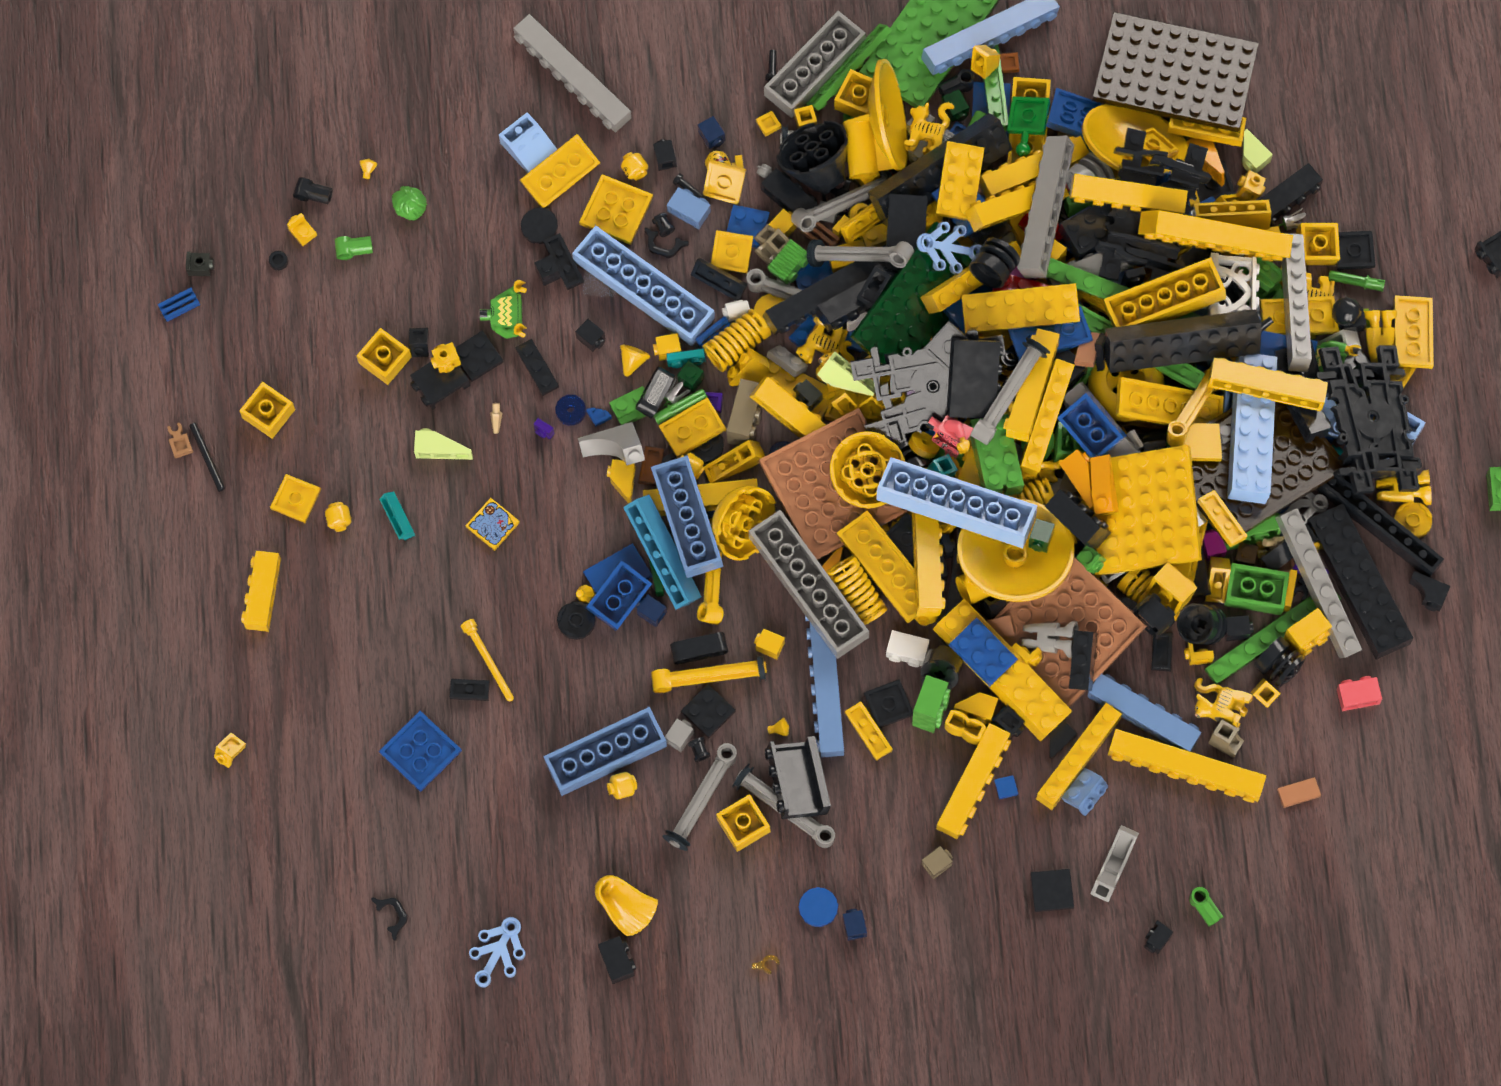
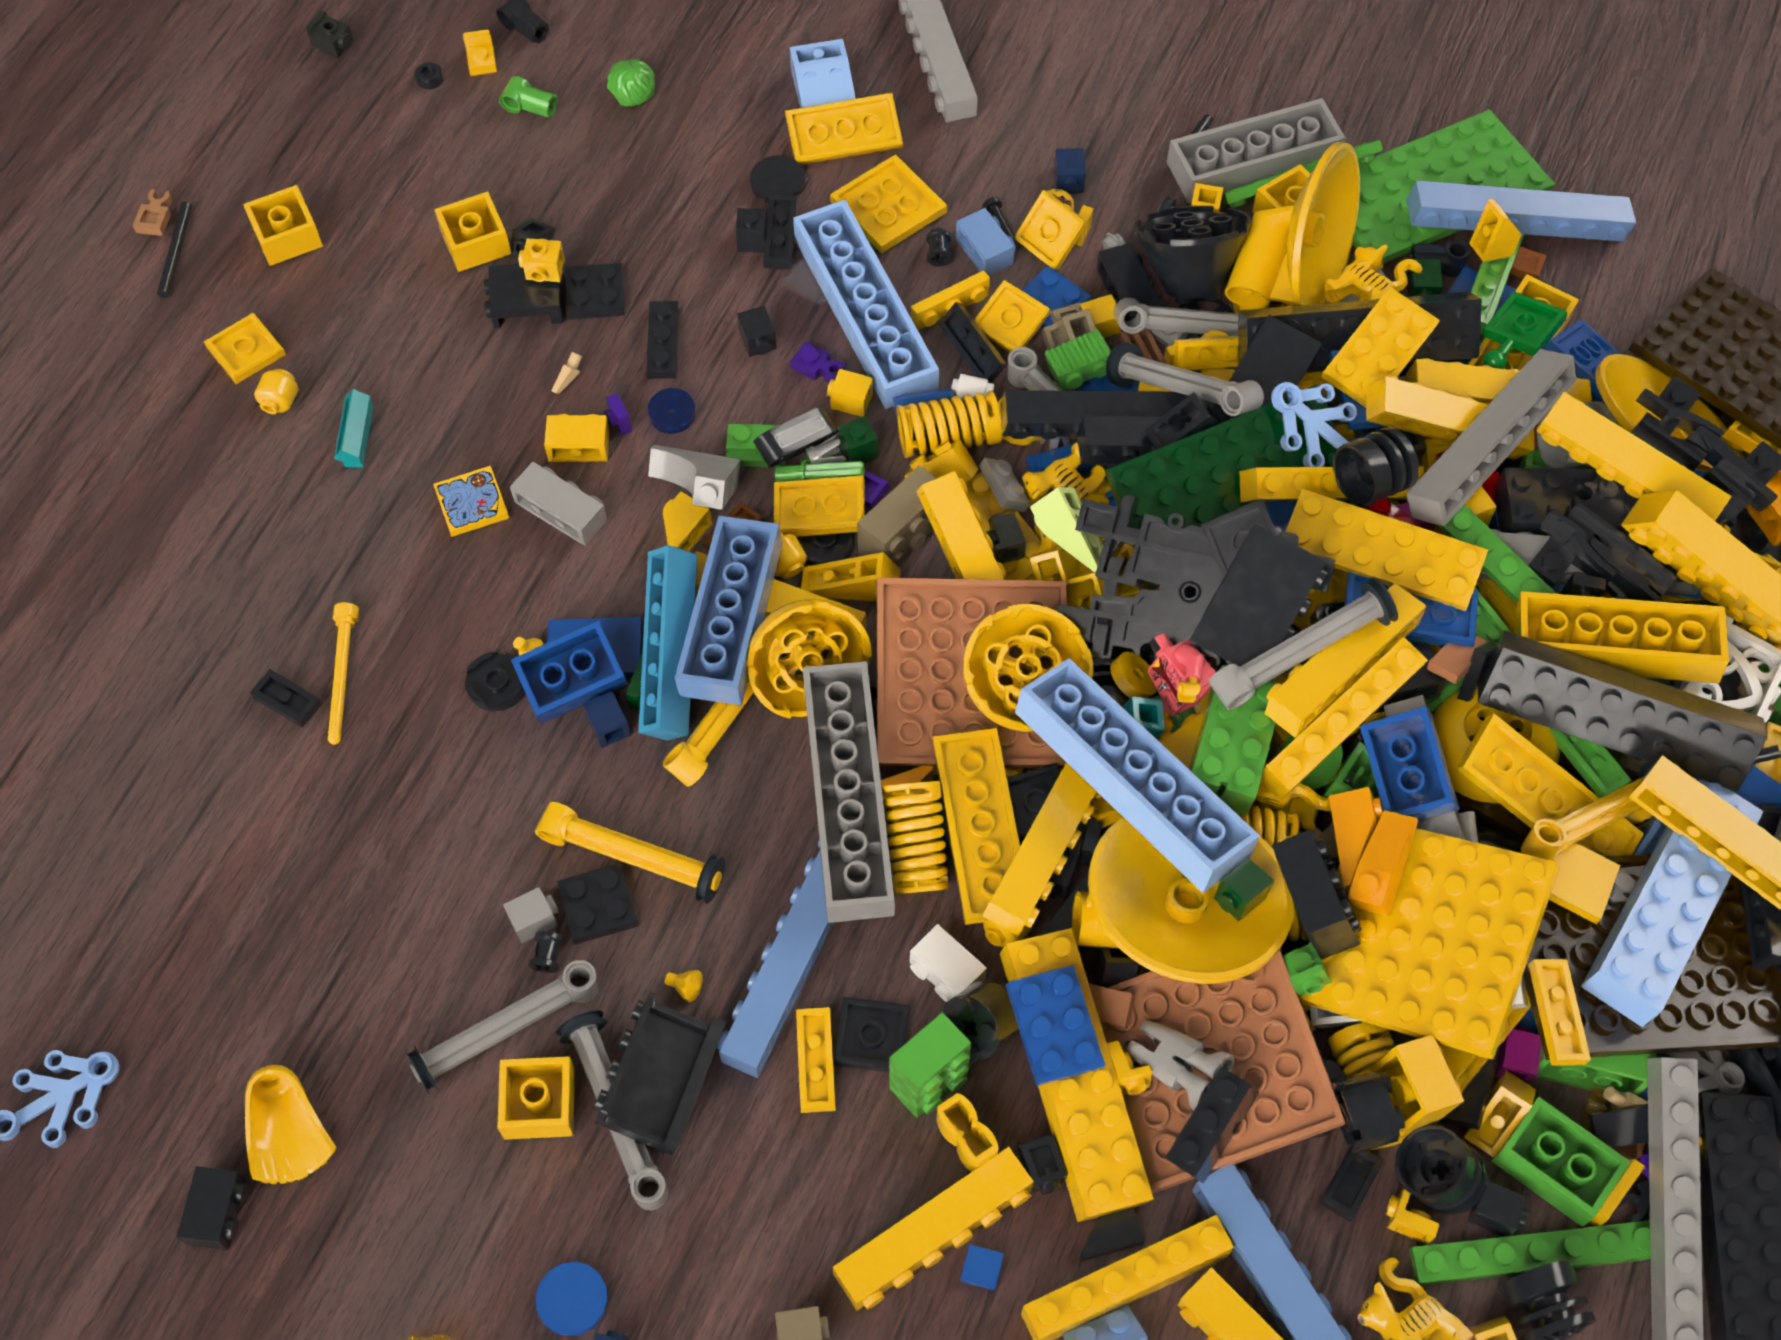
camera: 25 degrees right, 10 degrees down
(162, 305) = (275, 65): blue tile -> none
(261, 591) = (113, 435): yellow brick -> none
(367, 167) = (609, 23): yellow rock -> none
(420, 751) = (160, 746): blue plate -> none
(436, 446) = (461, 366): yellowish green slope -> none
(506, 312) = (667, 253): bright green torso -> none
(529, 455) = (577, 438): none -> yellow brick
(545, 500) = (559, 503): none -> light grey brick
(598, 416) = (703, 436): blue tile -> none
(605, 751) = (406, 880): medium blue brick -> none
(622, 785) = (400, 944): yellow head -> none
(632, 358) = (793, 385): yellow hat -> none
(633, 337) = (814, 362): none -> dark purple plate
(634, 166) = (944, 164): yellow head -> none
(661, 251) = (924, 285): black helmet -> none
(664, 154) = (992, 169): black brick -> none
(678, 359) = (881, 420): teal plate -> none
(699, 648) = (640, 806): black beam -> none
(700, 244) = (966, 292): none -> yellow plate
(768, 123) = (1151, 193): yellow plate -> none
(769, 643) = (745, 852): yellow brick -> none
(978, 707) = (1007, 1114): yellow slope -> none
(1246, 554) = (1569, 1095): dark brown brick -> none
(1308, 632) = (1620, 1280): yellow brick -> none

